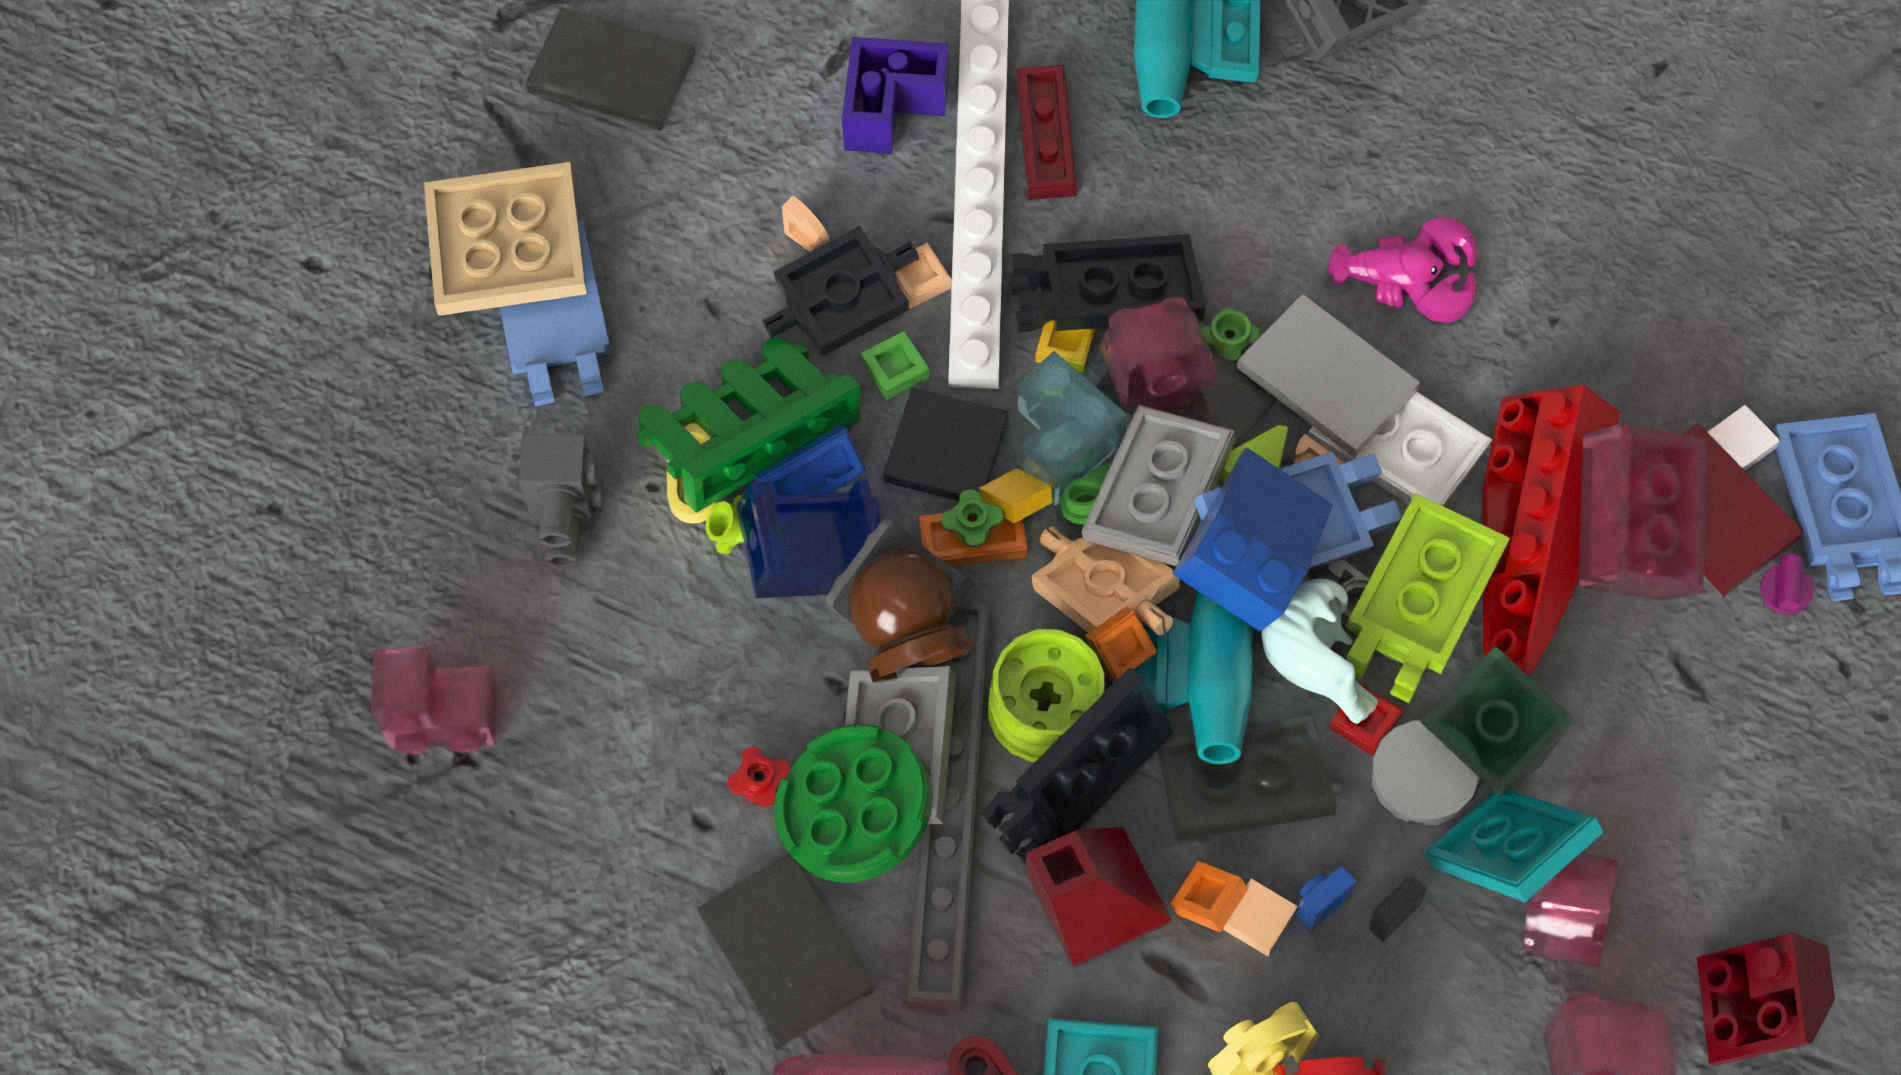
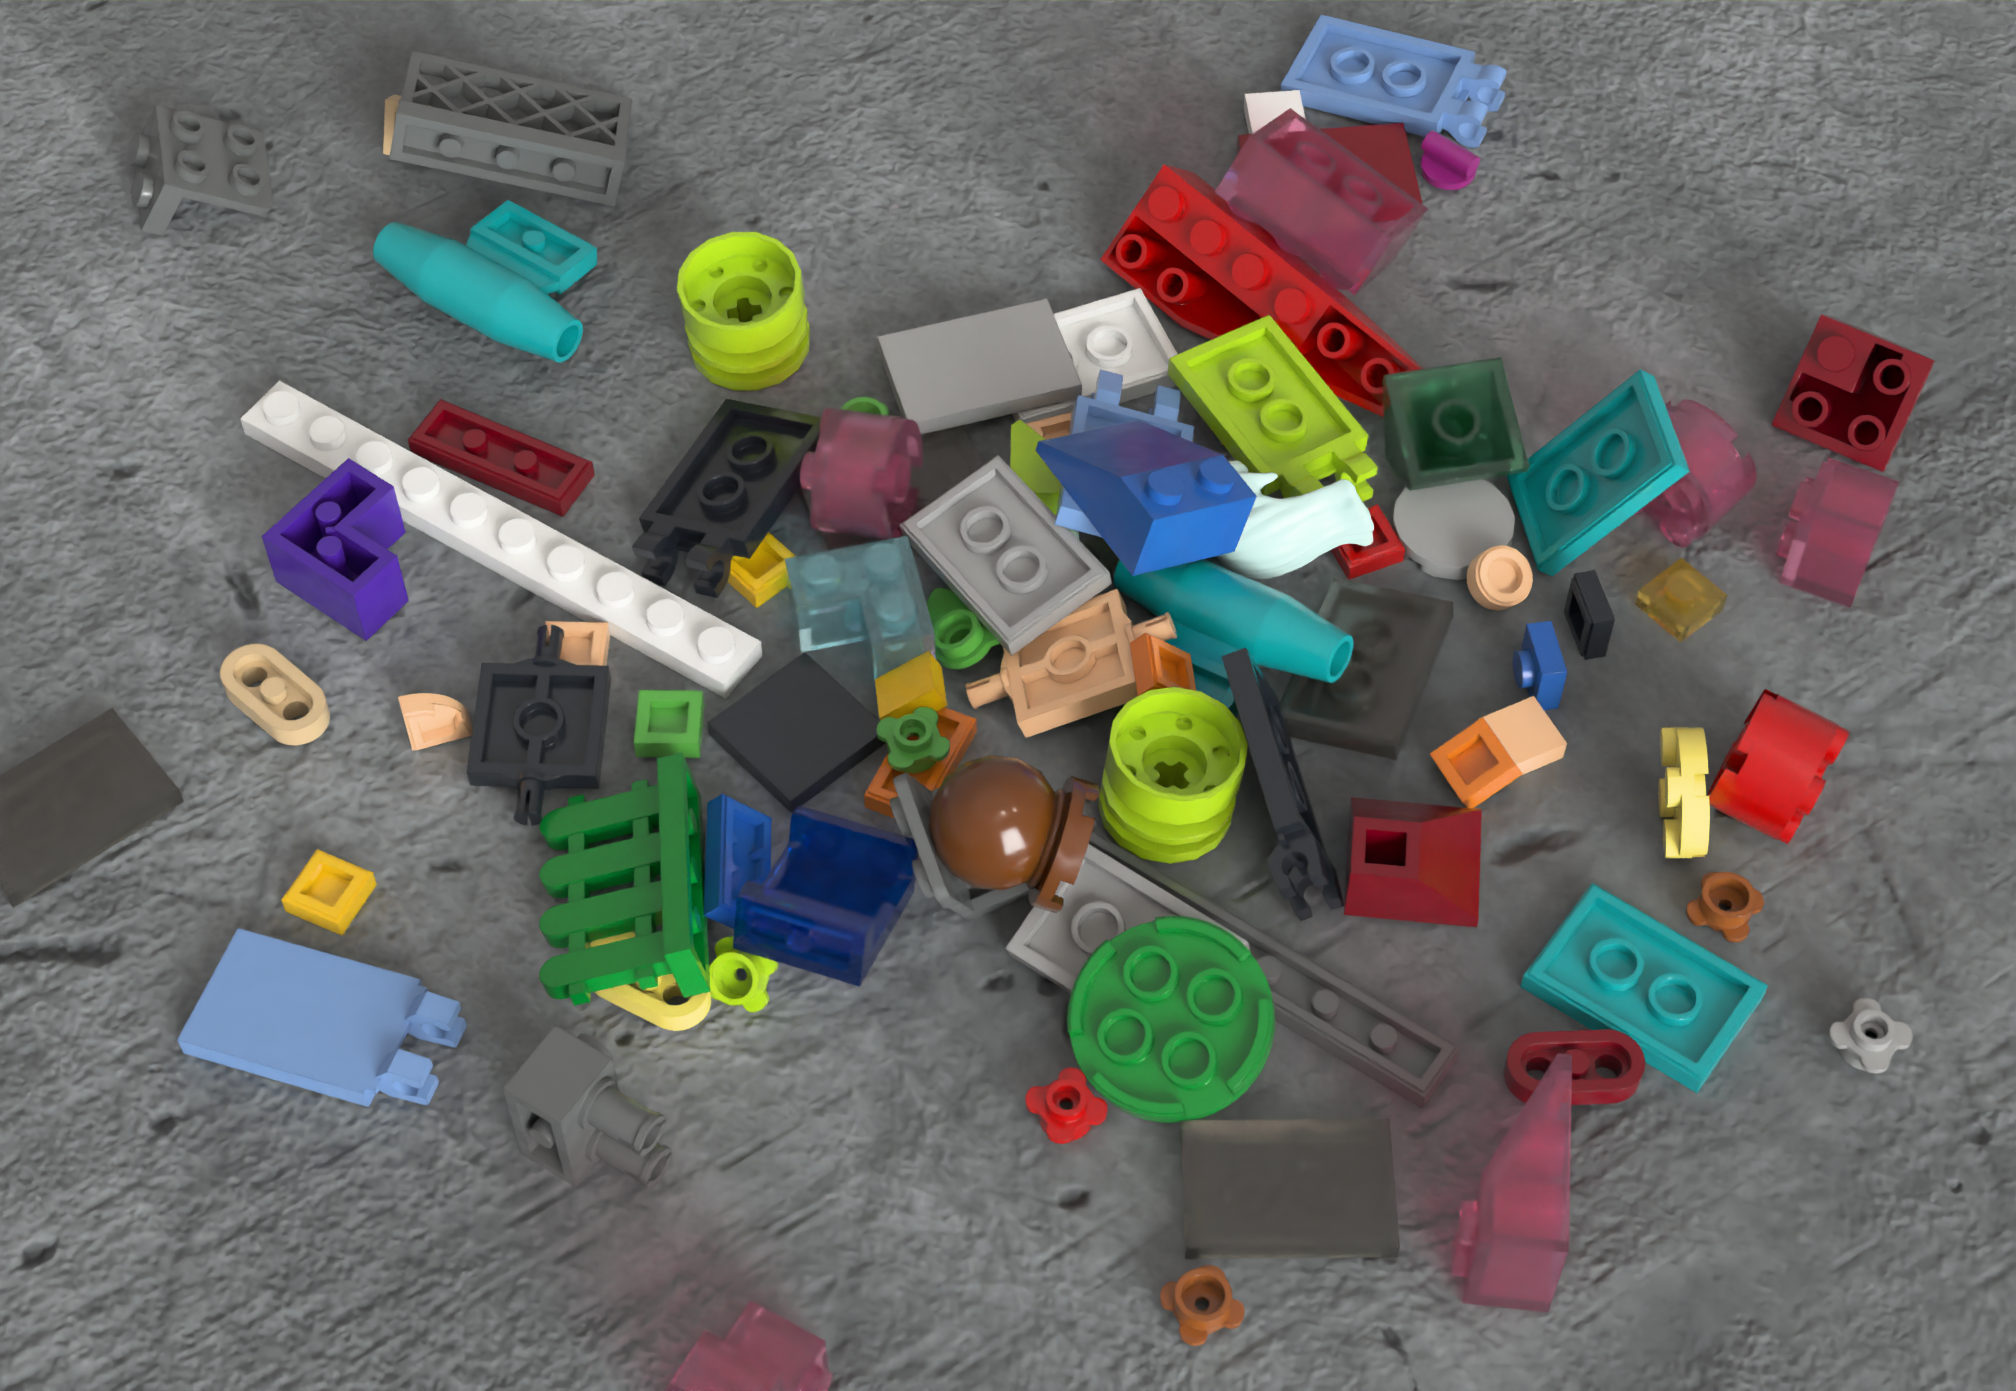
camera: 60 degrees left, 10 degrees down
(504, 238) = (200, 1010): tan plate -> none
(646, 253) = (329, 892): none -> yellow tile
(664, 925) = (1205, 1284): none -> dark orange plate
(763, 130) = (279, 698): none -> tan plate
(1258, 196) = (744, 310): none -> lime wheel
(1391, 829) = (1499, 578): none -> light nougat tile
(1411, 267) = (912, 247): dark pink animal -> none
(1468, 970) = (1681, 599): none -> clear yellow plate

